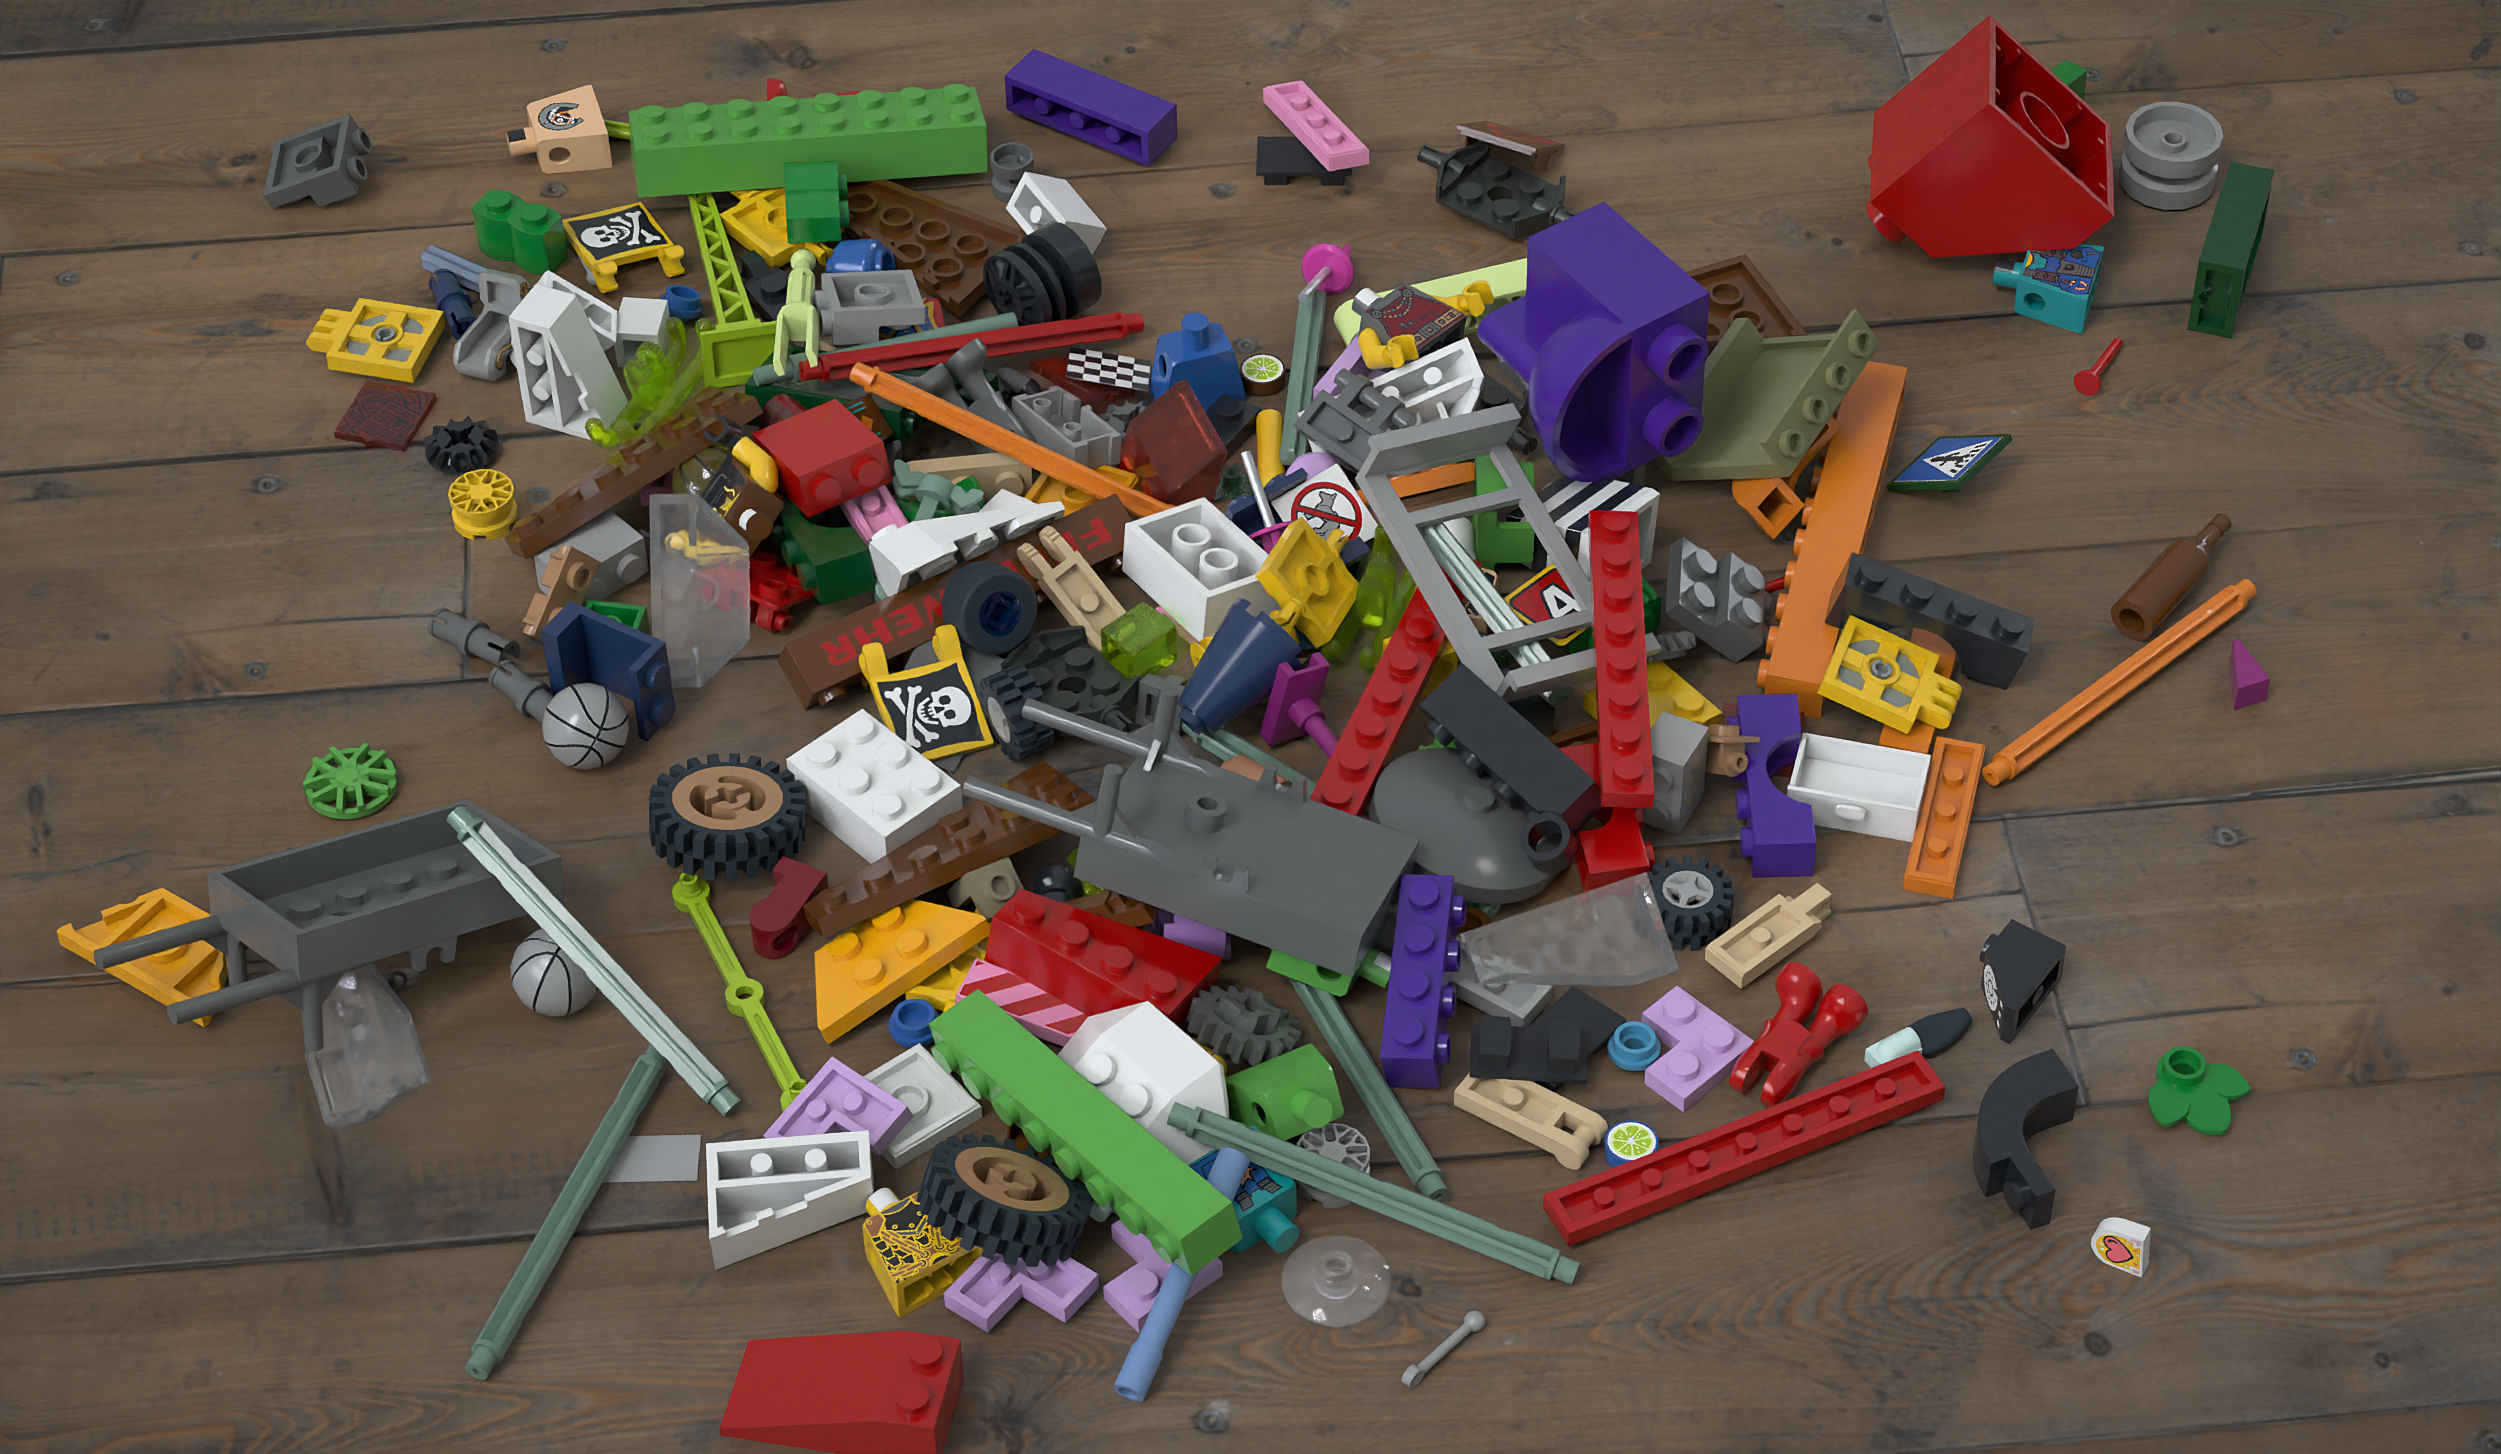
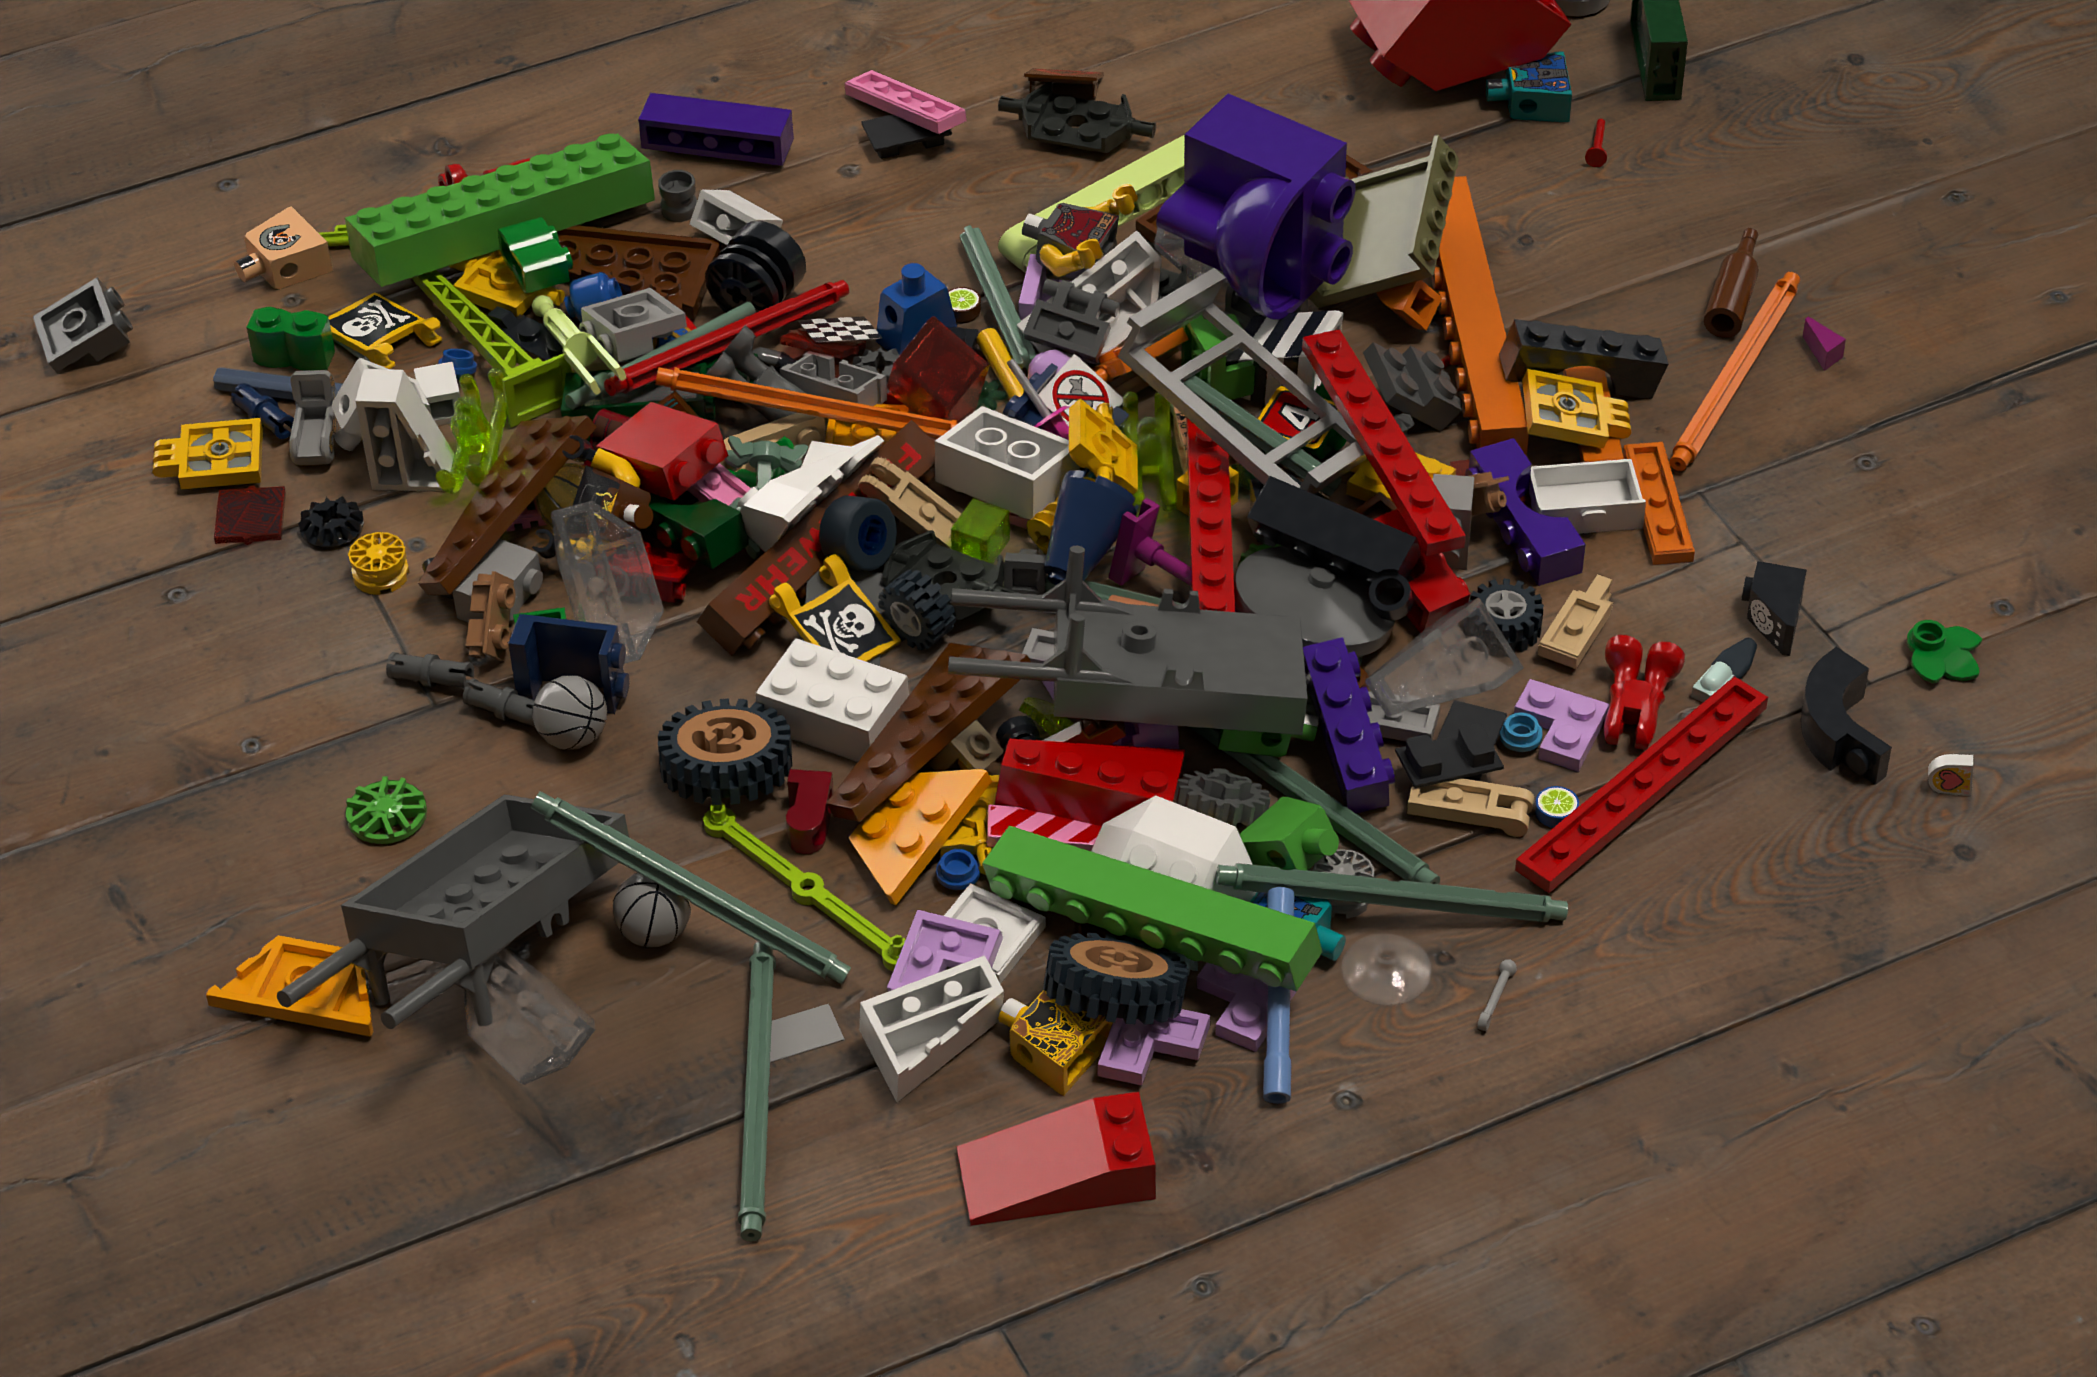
camera: 20 degrees left, 0 degrees up
(1326, 269) = (975, 209): dark pink piece -> none
(1949, 462) = (1529, 240): piece -> none

